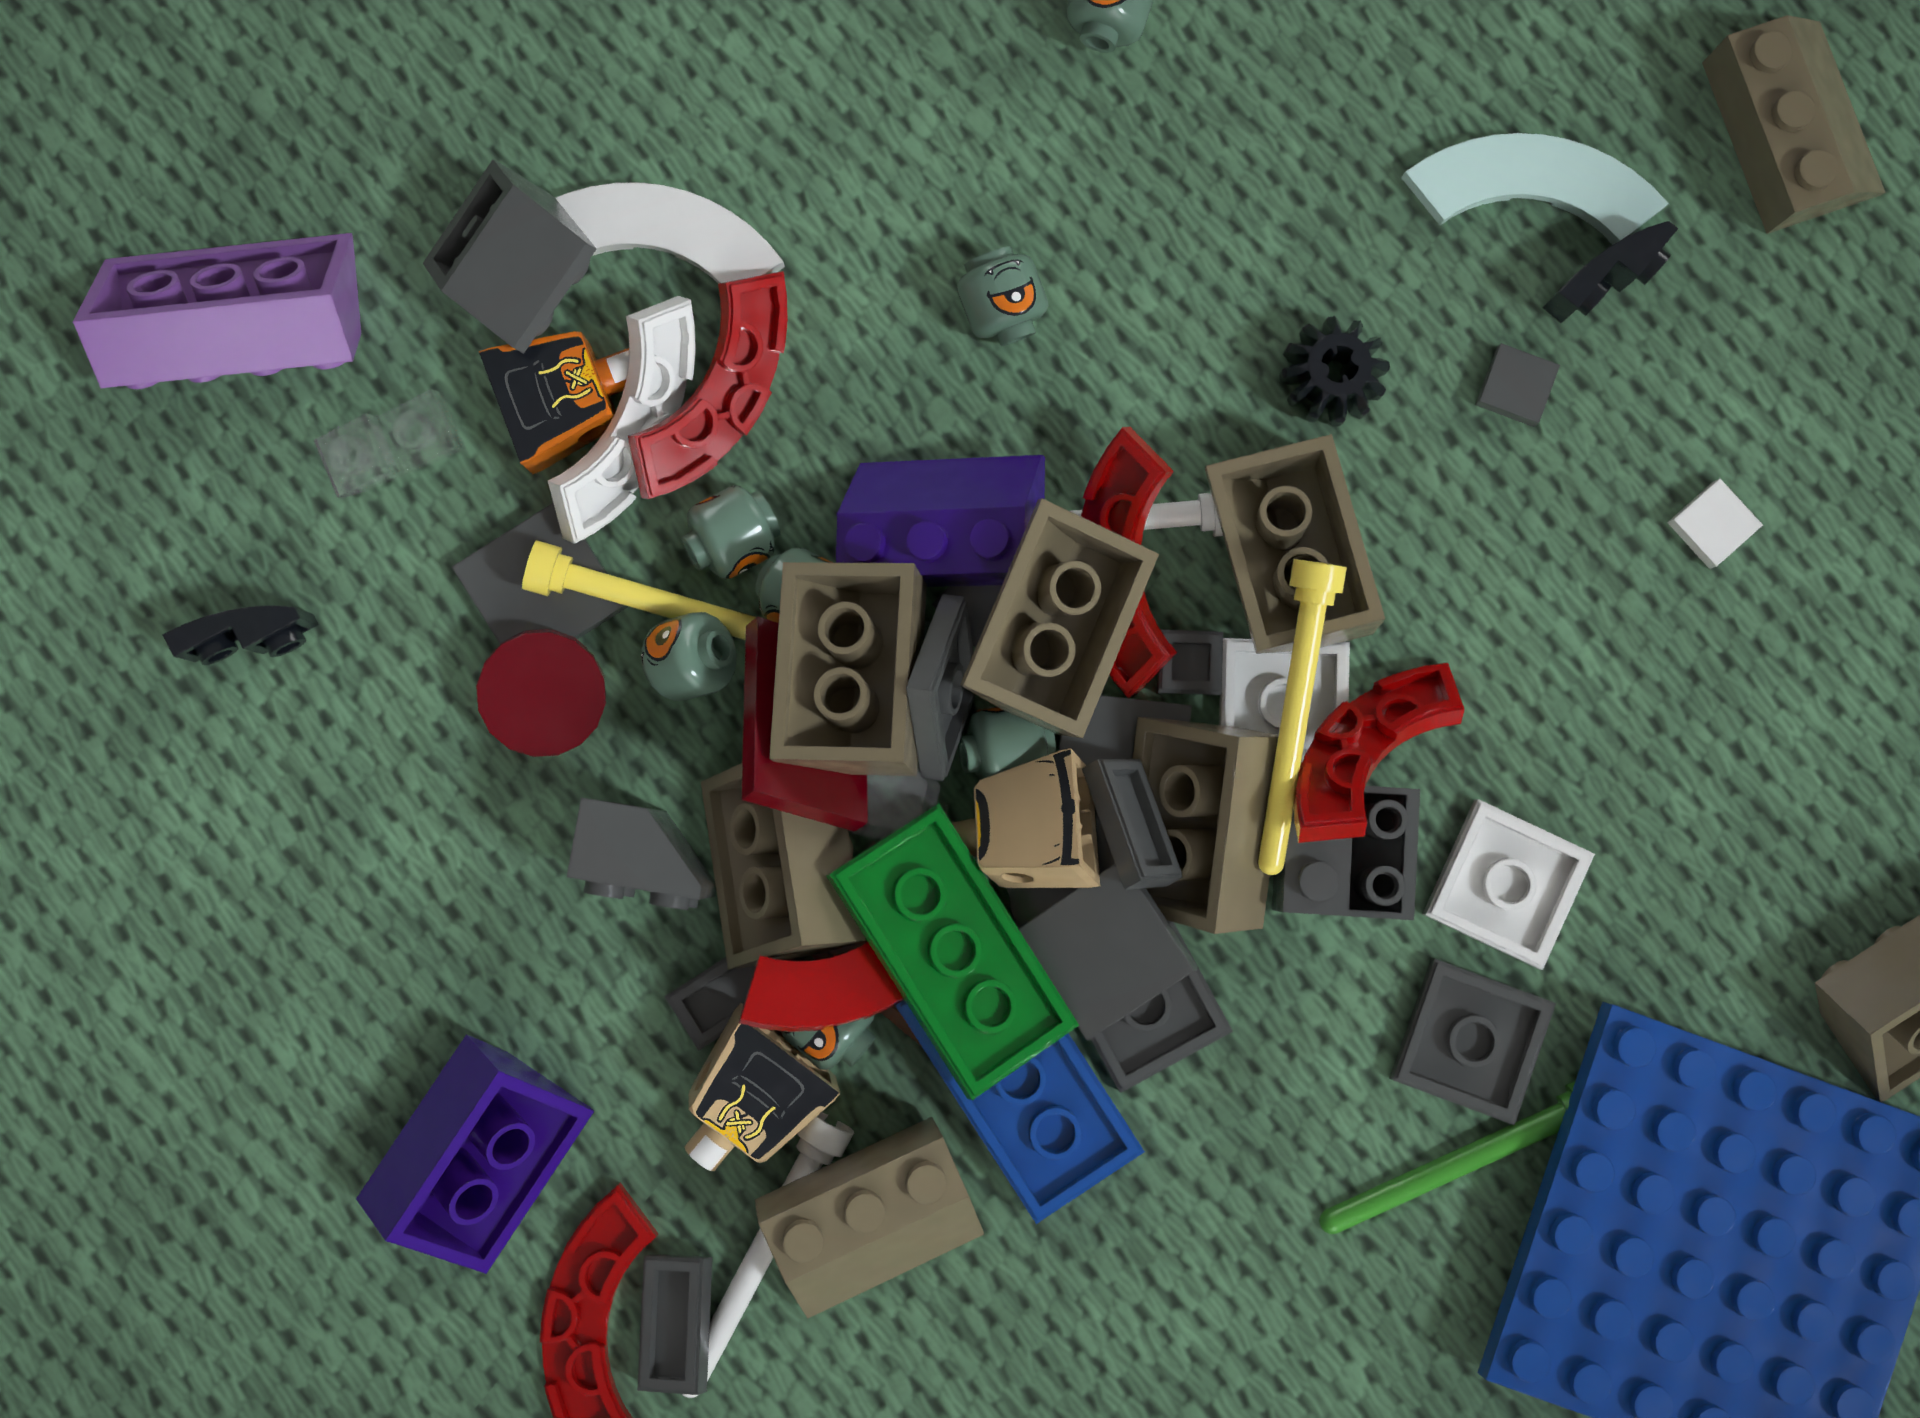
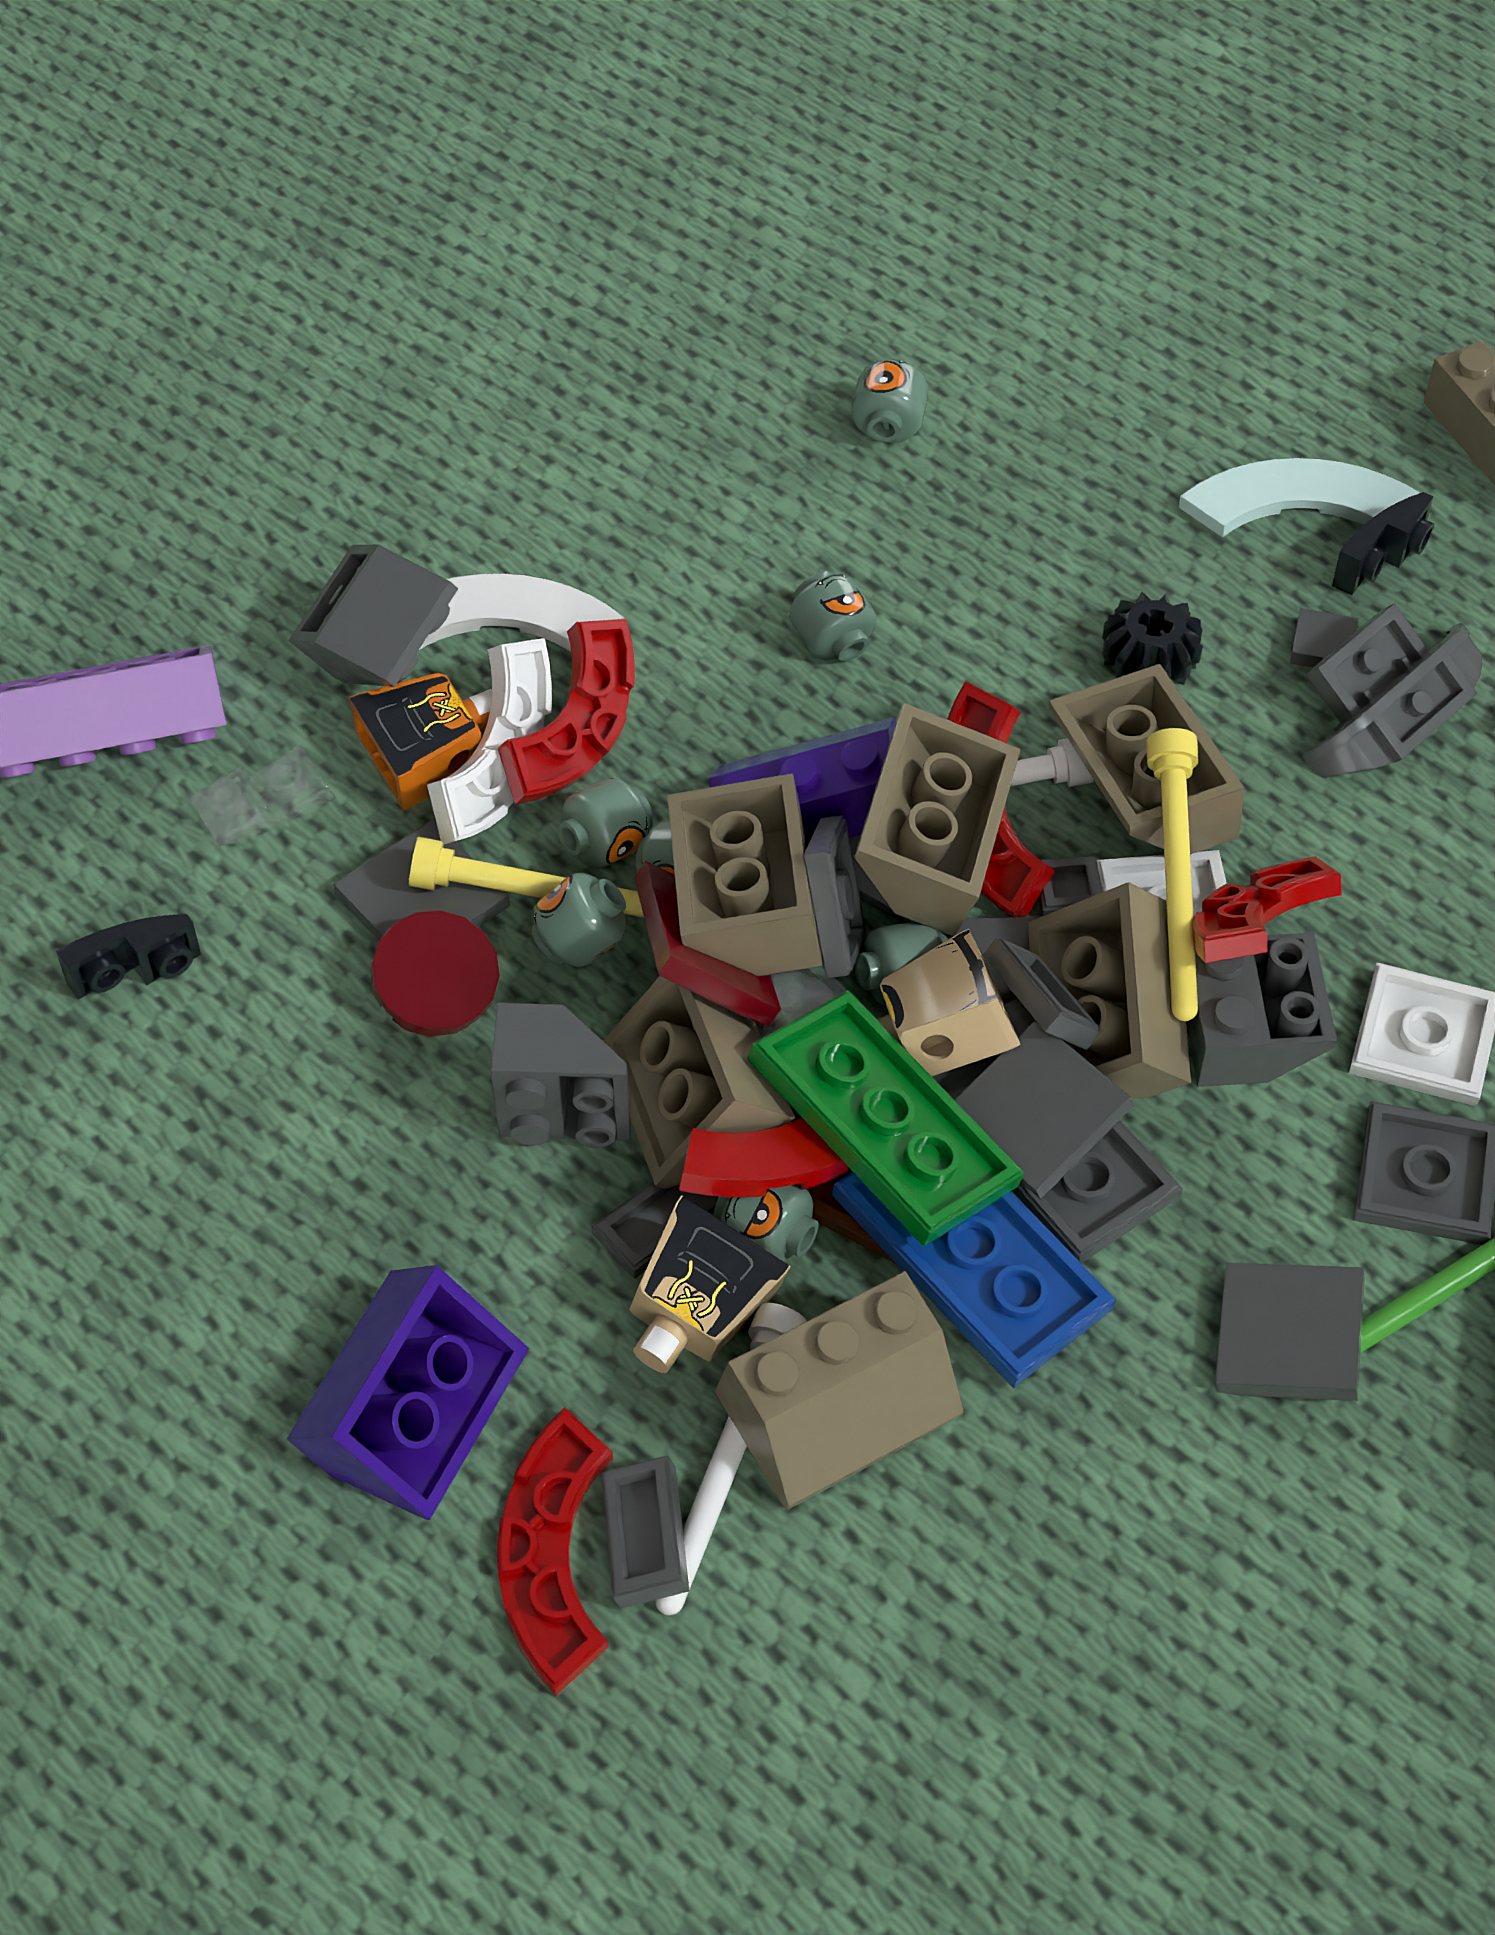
camera: 10 degrees left, 30 degrees down
(1302, 1201) = (1291, 1331): none -> dark grey tile
(1572, 469) = (1390, 692): none -> dark grey plate

